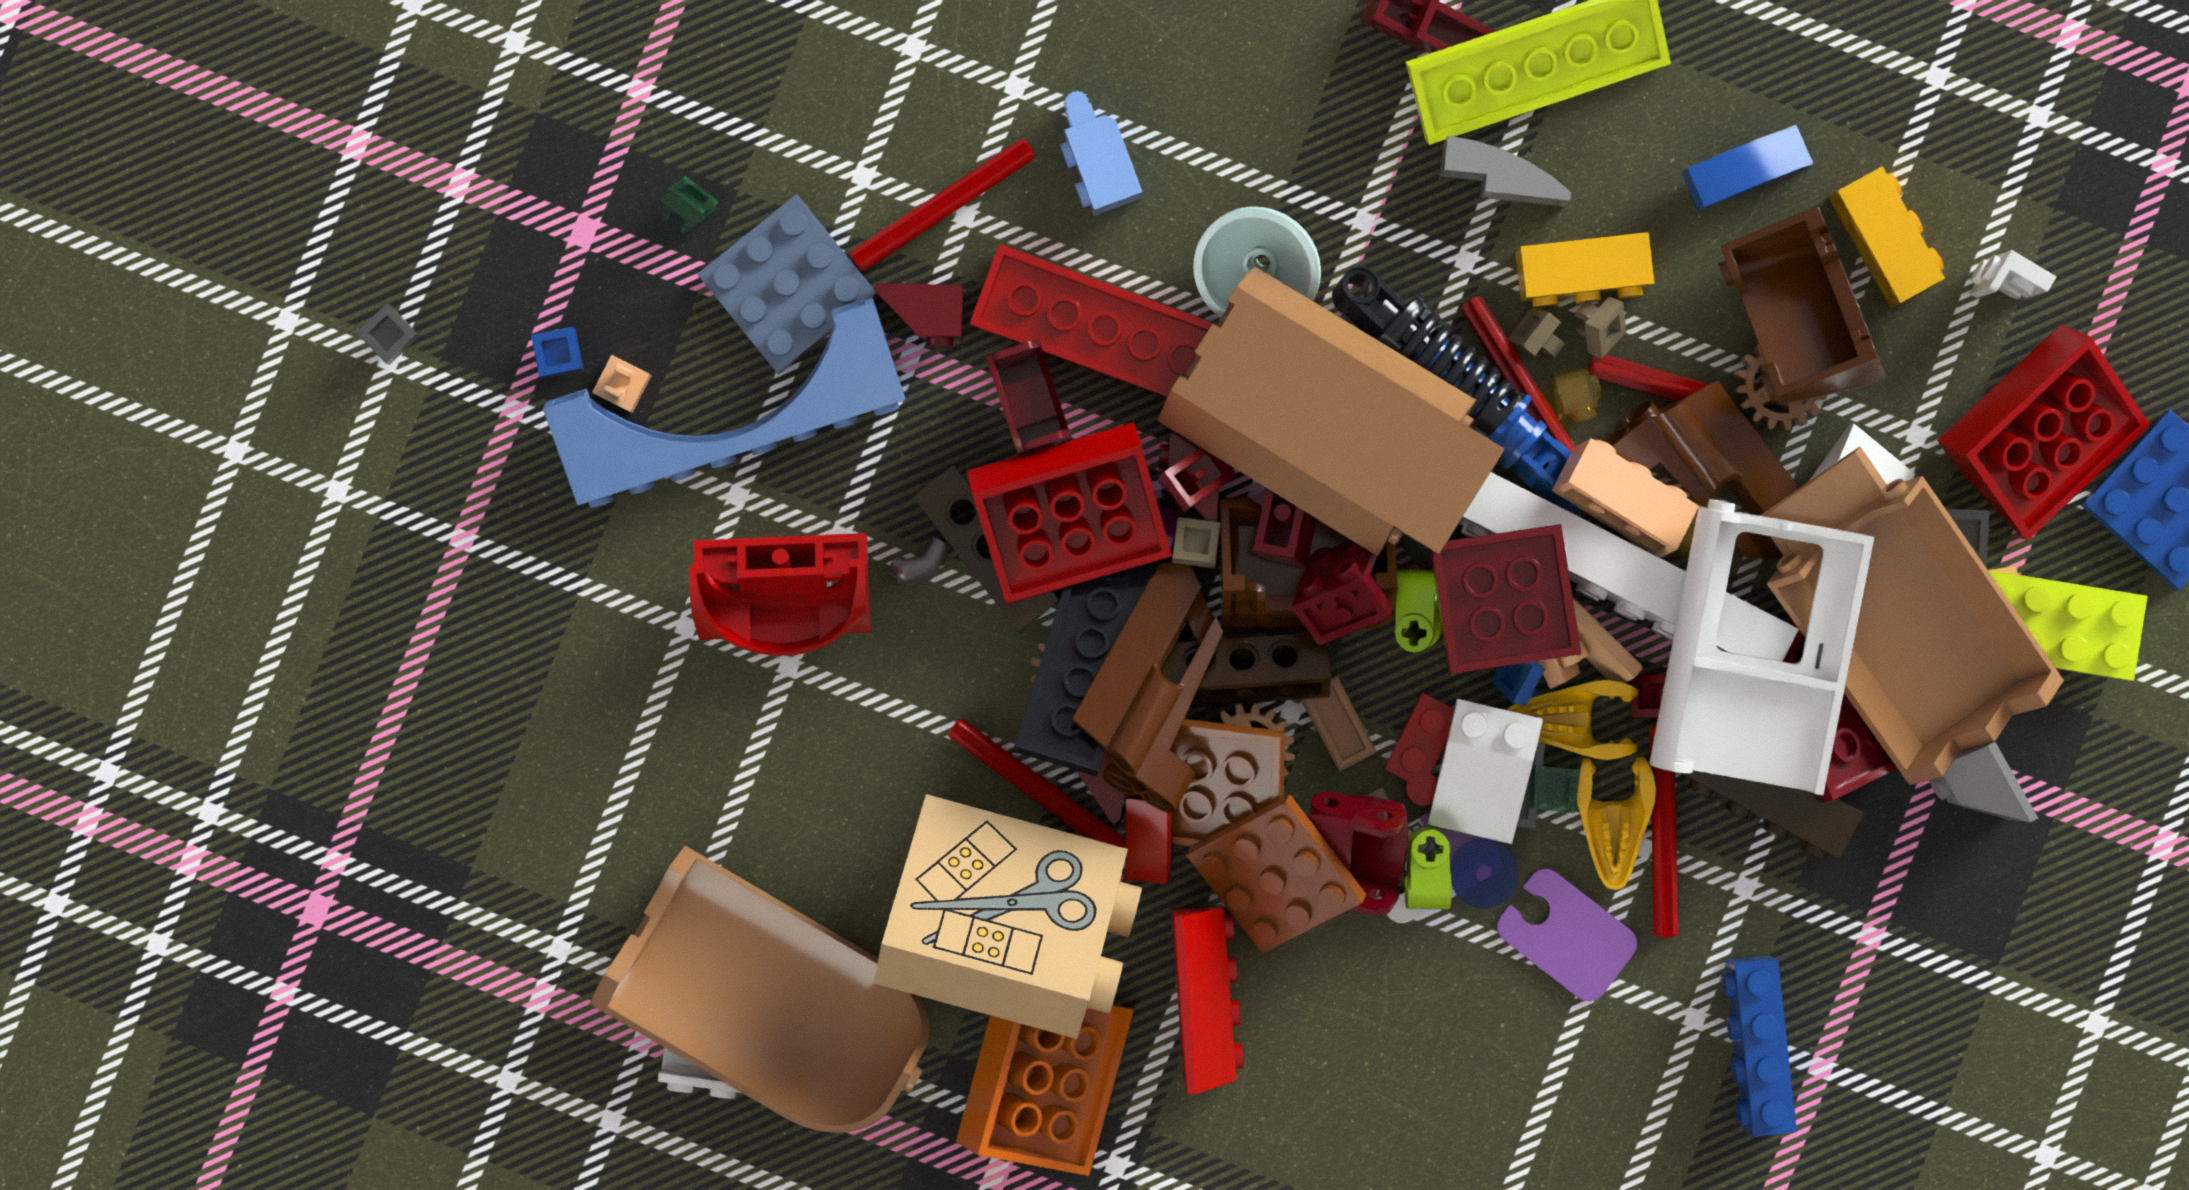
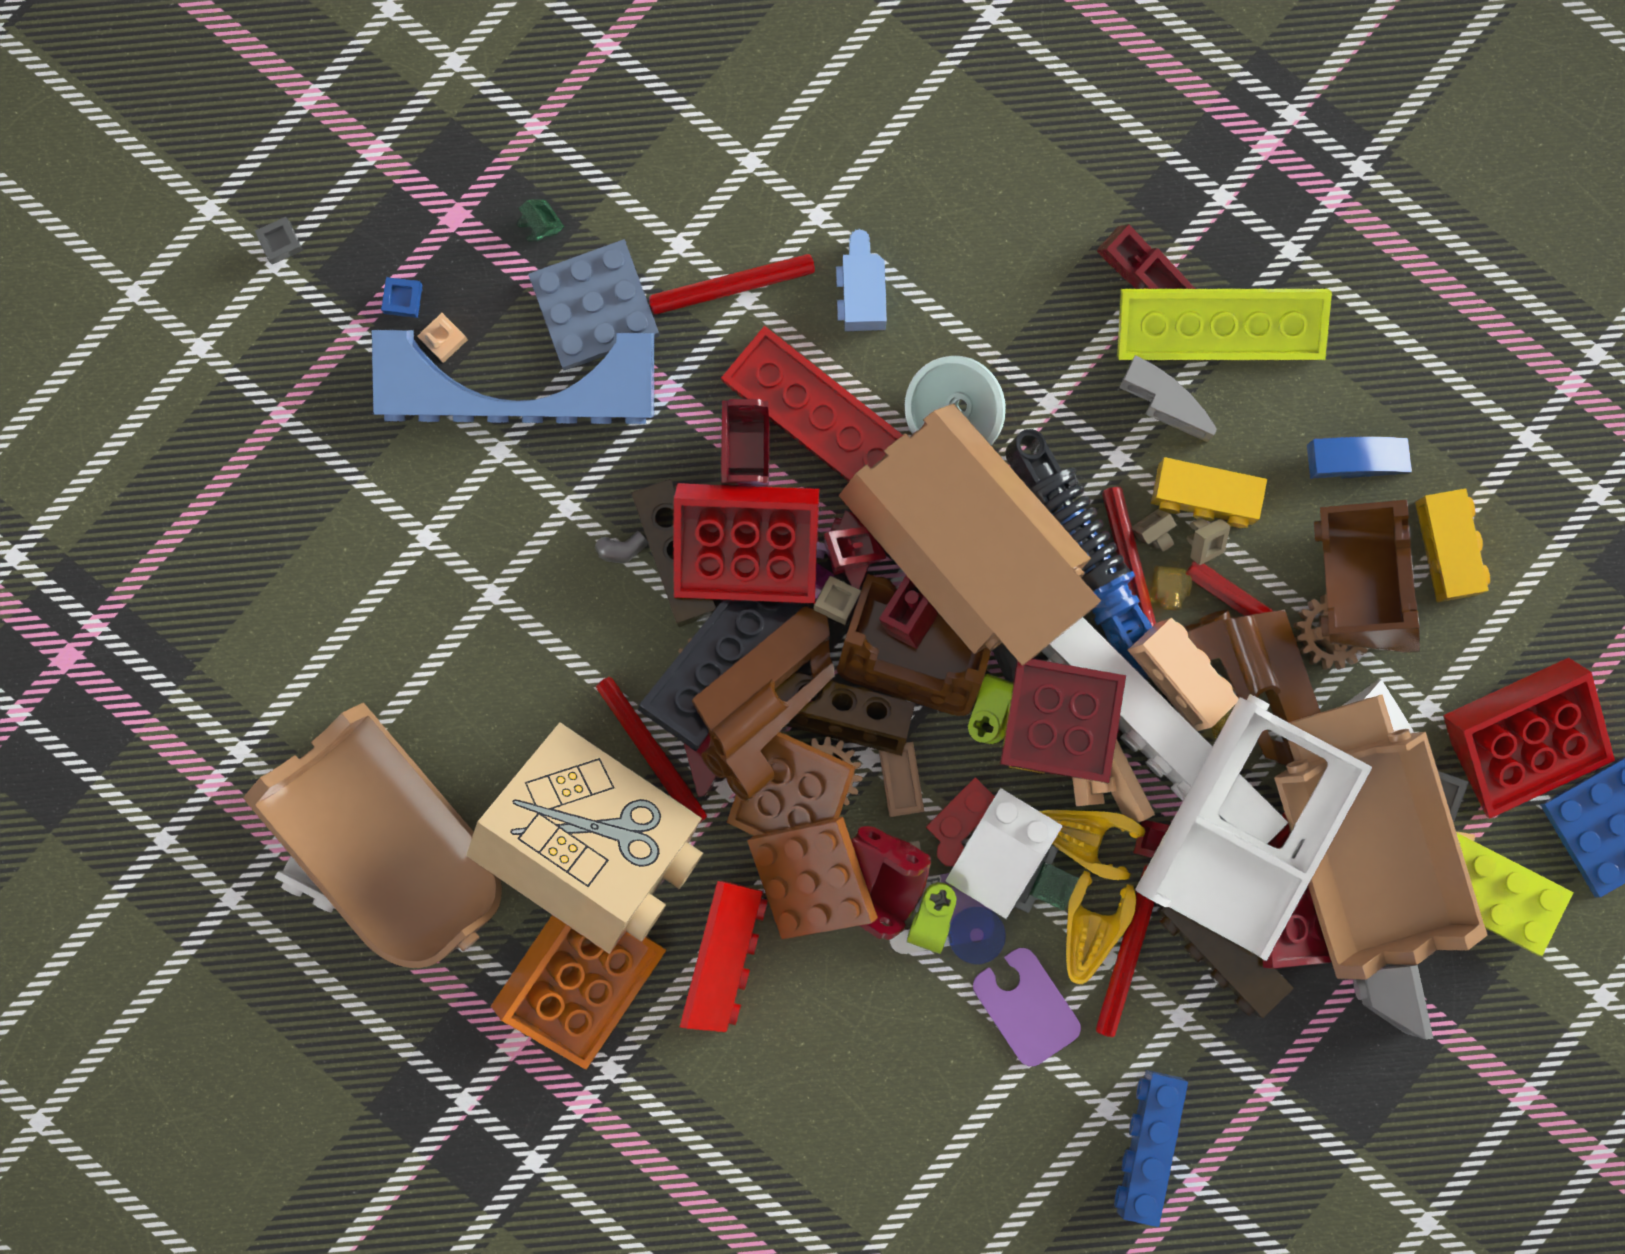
camera: 25 degrees right, 5 degrees down
(782, 592) = (507, 530): red piece -> none
(927, 310) = (693, 357): dark red slope -> none
(1147, 841) = (721, 820): red tile -> none
(1340, 593) = (935, 675): dark red bracket -> none
(1518, 681) = (1054, 791): blue tile -> none
(2011, 275) = (1544, 606): white bracket -> none

